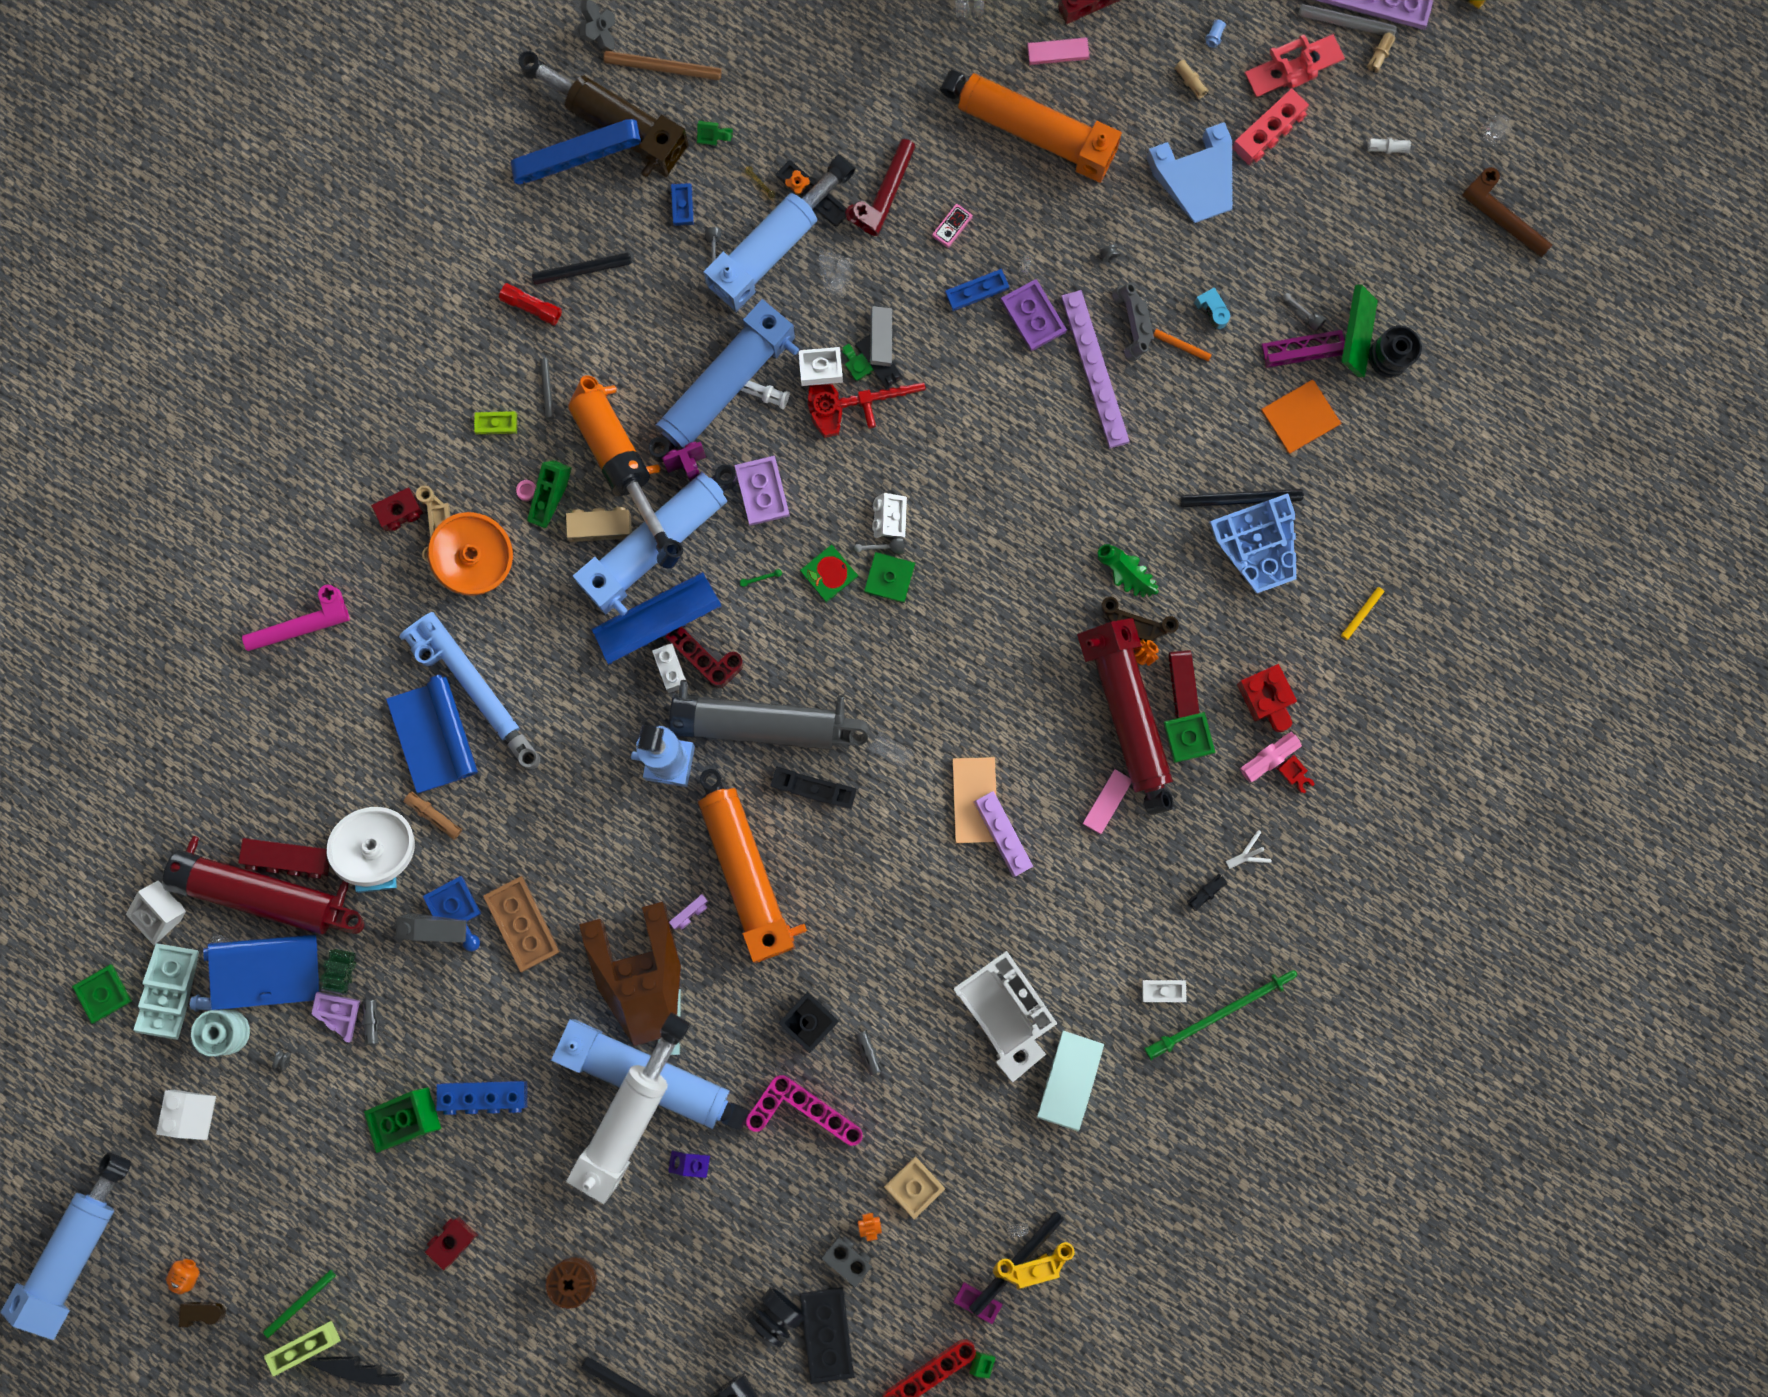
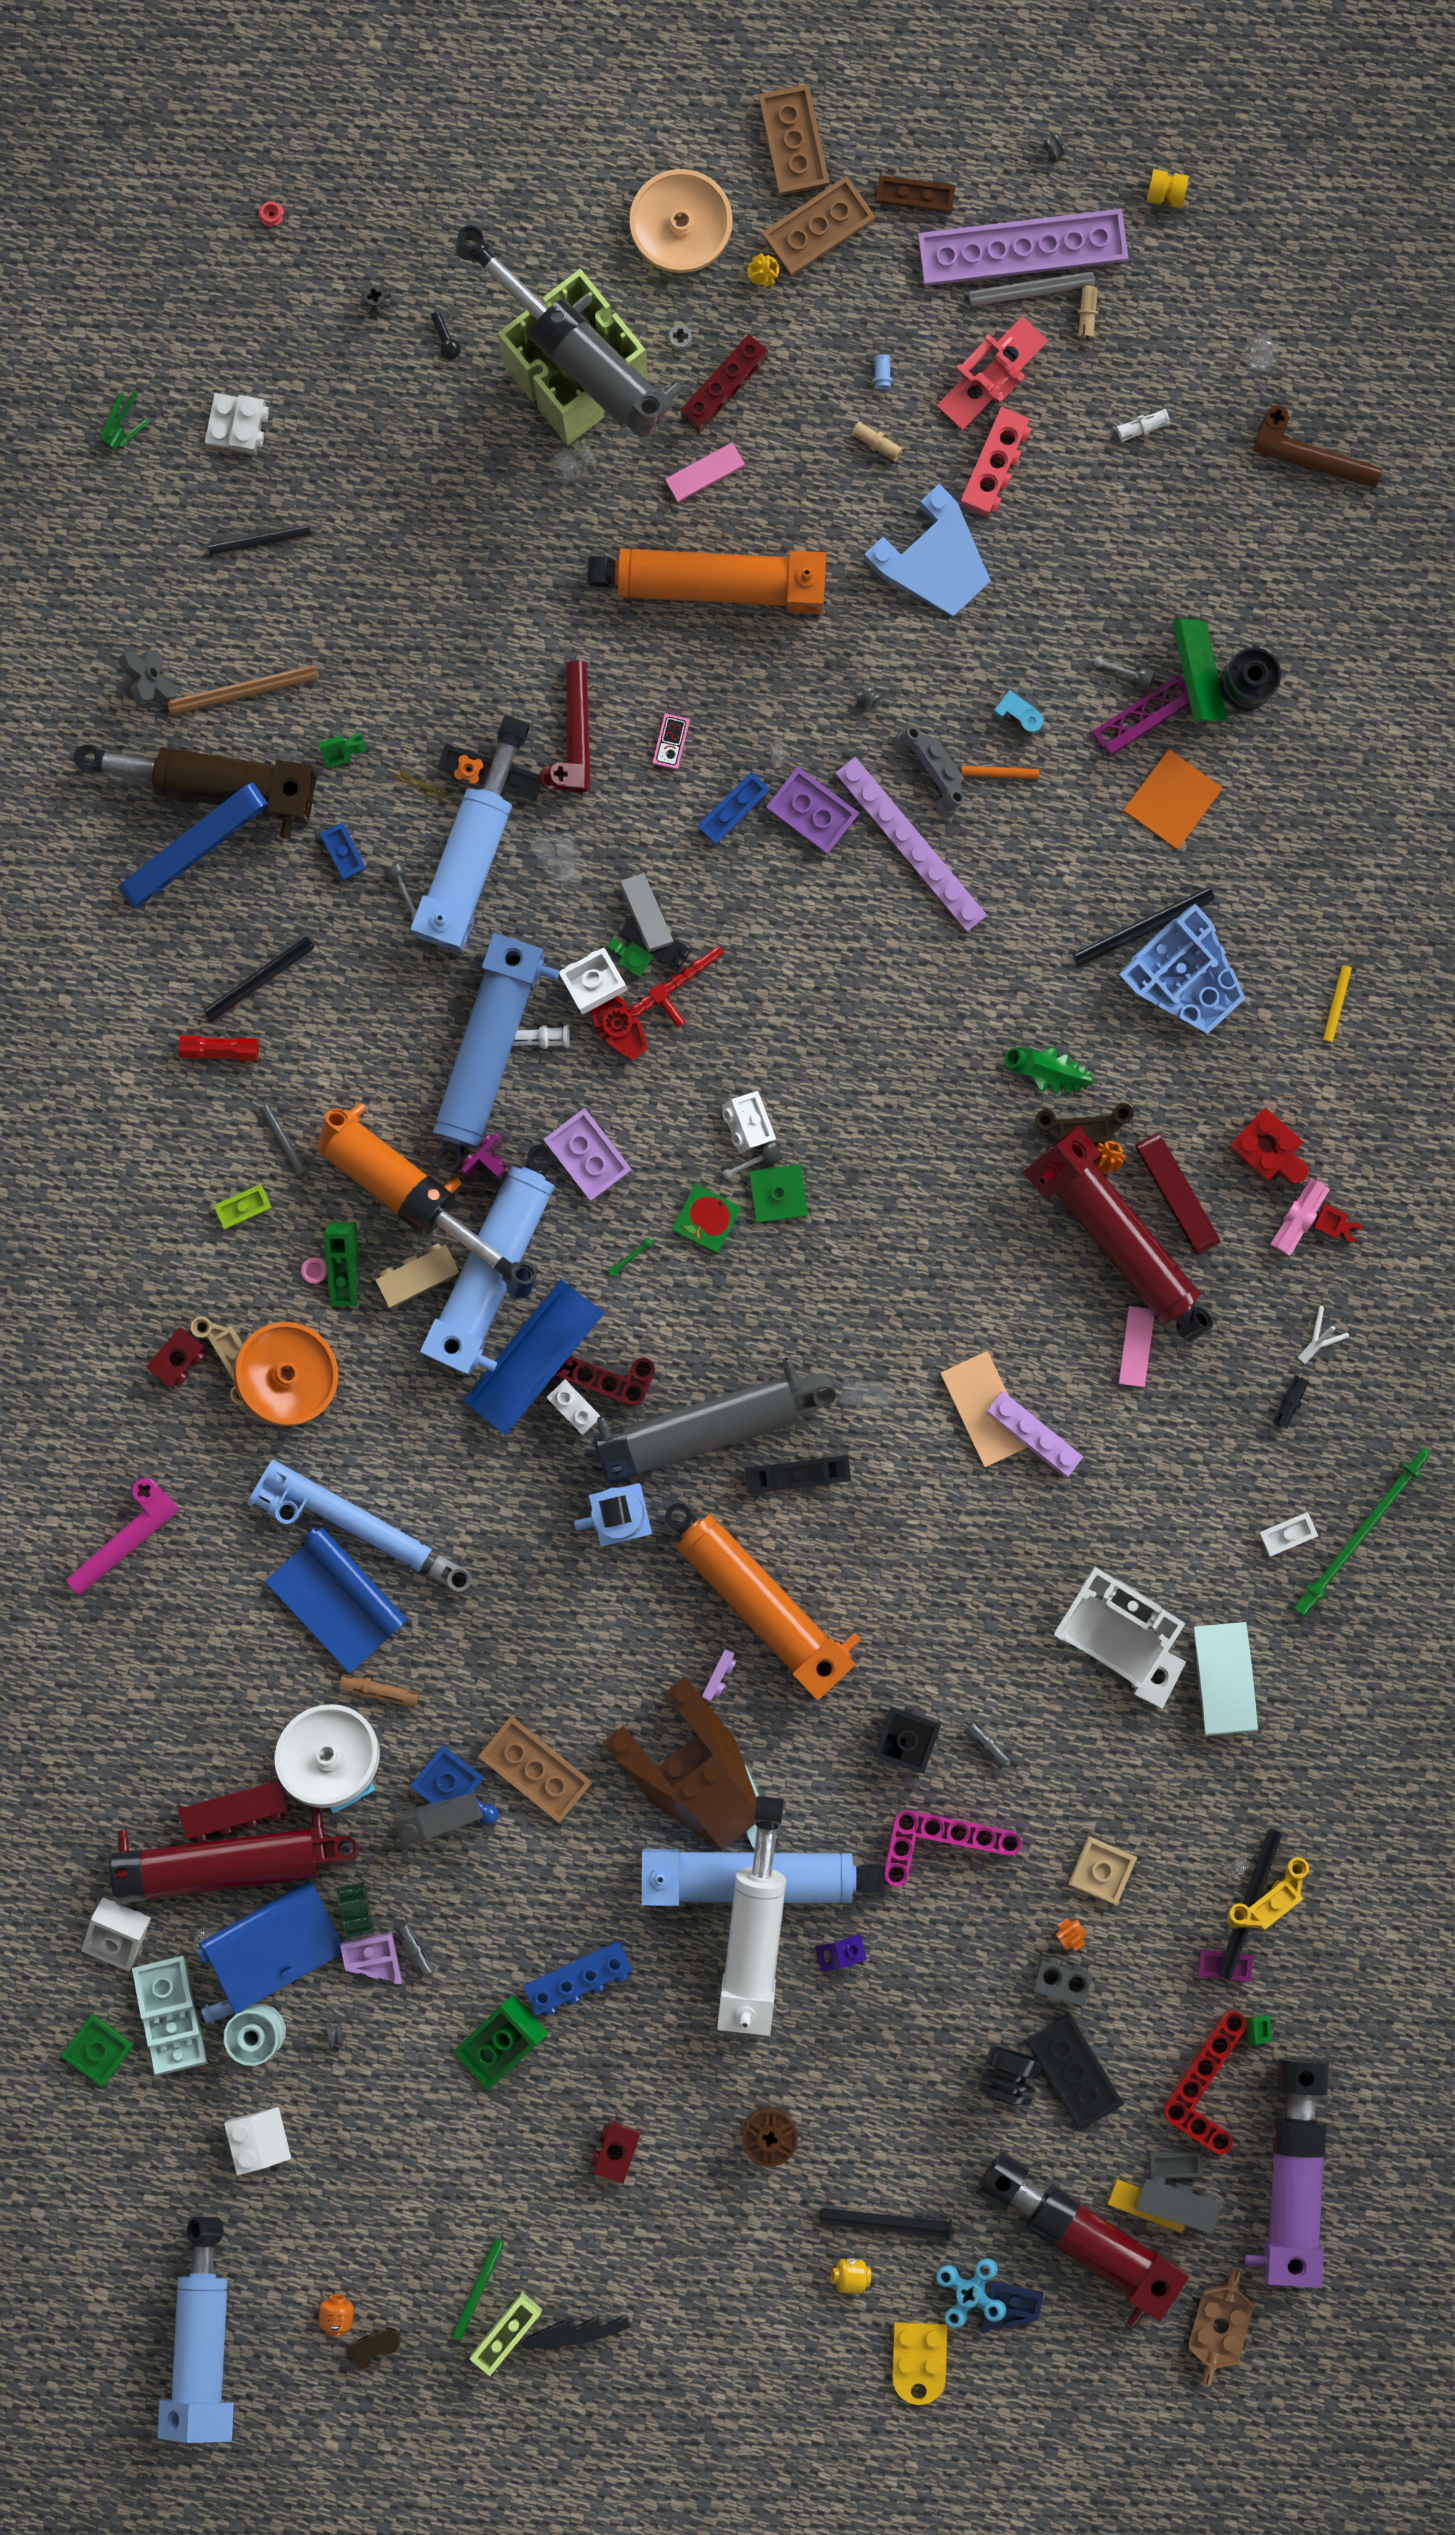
camera: 20 degrees left, 5 degrees up
(1189, 737) = (1198, 1235): green tile -> none

